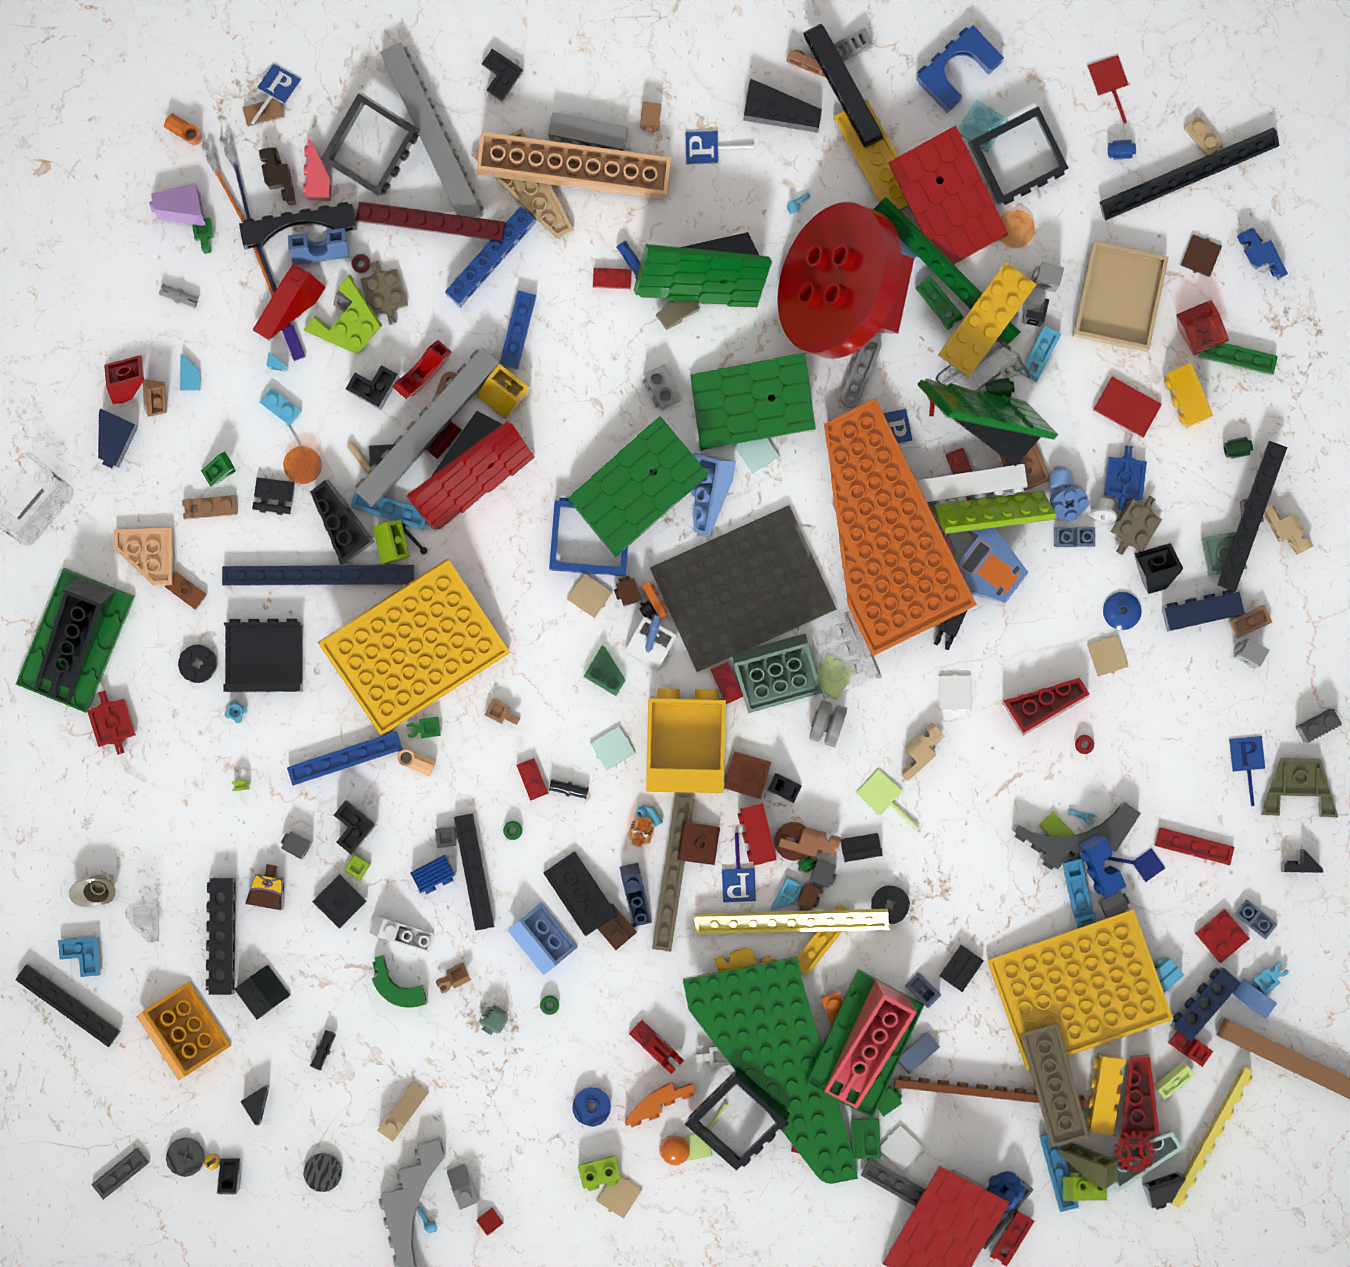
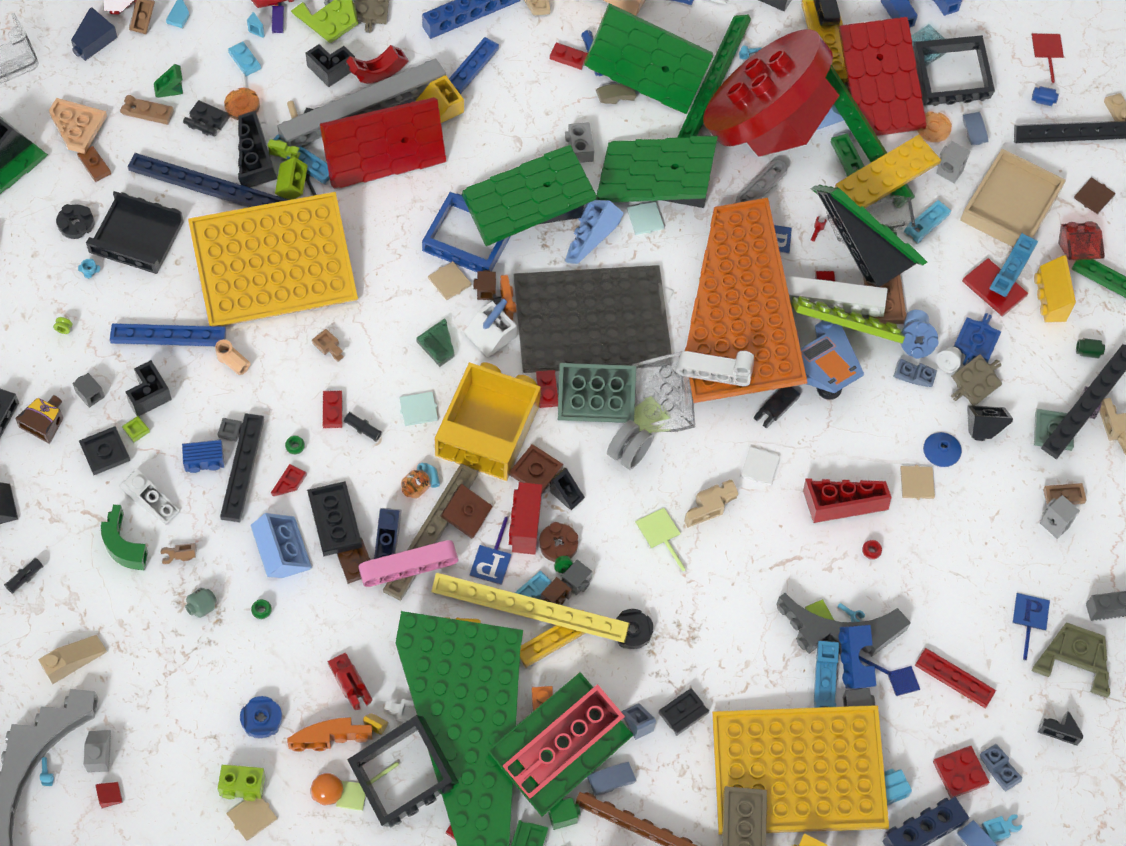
camera: 10 degrees right, 25 degrees down
(366, 512) = (280, 149): none -> lime plate
(428, 728) = (254, 334): green plate -> none
(522, 868) = (289, 481): none -> red tile
(667, 919) = (408, 563): none -> bright pink beam
(693, 1074) = (378, 723): none -> yellow slope
(772, 247) = (715, 75): none -> green plate
(810, 842) = (573, 542): nougat plate -> none
(861, 847) = (622, 570): black panel -> none
(885, 621) = (716, 368): none -> white beam
(1036, 318) = (932, 187): black panel -> none
(1059, 218) = (975, 128): none -> sand blue slope
(1140, 382) = (1014, 265): none -> dark azure slope
(1202, 611) = (1020, 470): dark blue brick -> none

